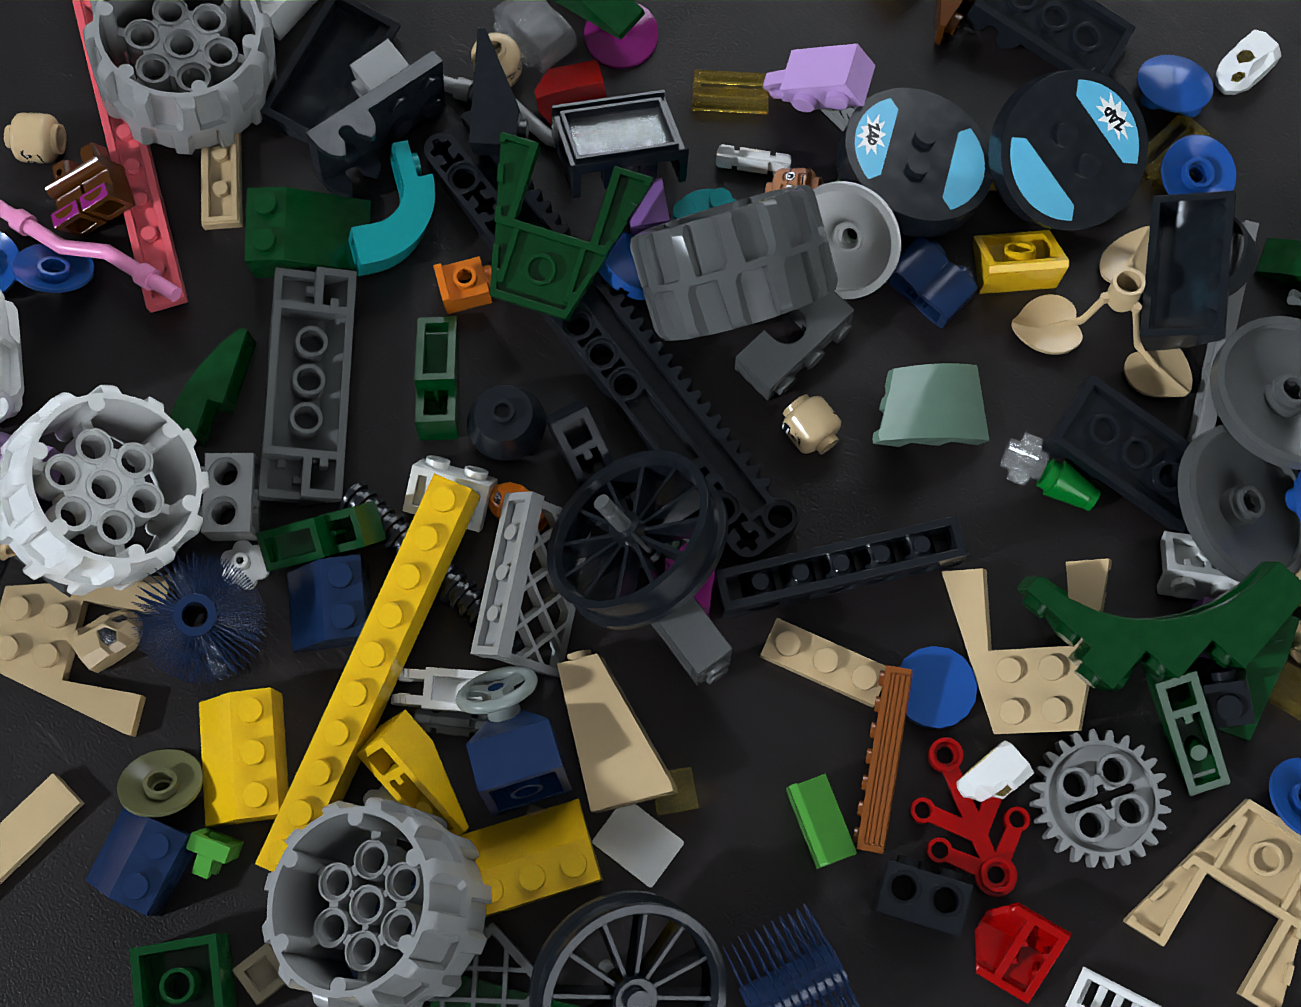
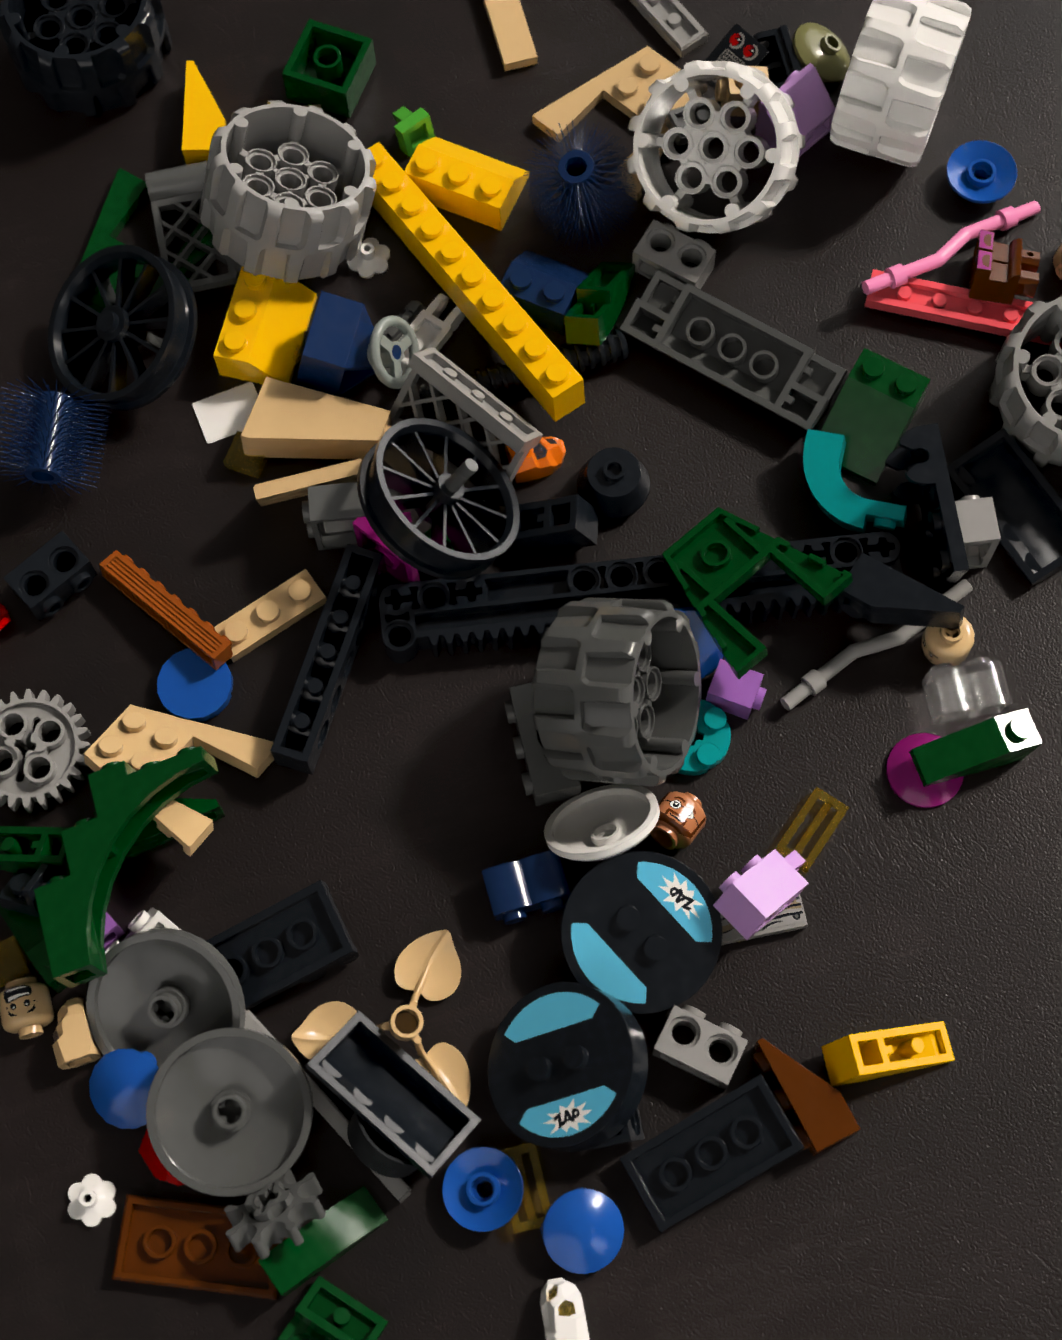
camera: 120 degrees right, 5 degrees down
(51, 272) = (958, 209): blue dish -> none
(106, 639) = (615, 115): tan rock -> none
(141, 863) = (436, 82): dark blue slope -> none
(160, 783) = (494, 113): olive dish -> none
(214, 386) = (771, 285): dark green slope -> none
(222, 186) = (958, 378): tan tile -> none
(252, 566) = (617, 249): white plant -> none
(411, 769) = (380, 278): yellow slope -> none
(437, 378) = (683, 452): dark green slope -> none
(464, 296) = (756, 498): orange brick -> none
(471, 477) = (586, 422): white bracket -> none
(569, 85) = (880, 693): red slope -> none
(617, 133) = (807, 690): black window -> none
(678, 692) = (296, 485): none -> tan tile
(751, 159) = (731, 808): white axle -> none
(811, 424) = (463, 713): tan head -> none
(821, 821) = (155, 537): bright green panel -> none
(932, 406) = (415, 815): sand green slope -> none
(973, 826) = (79, 648): red plant -> none
(978, 75) = (695, 1056): none -> light grey brick
(995, 774) = (98, 678): white rock -> none
(1018, 261) = (502, 971): yellow slope -> none
(1024, 459) = (324, 862): clear gear -> none
(1067, 485) = (280, 885): green cone -> none

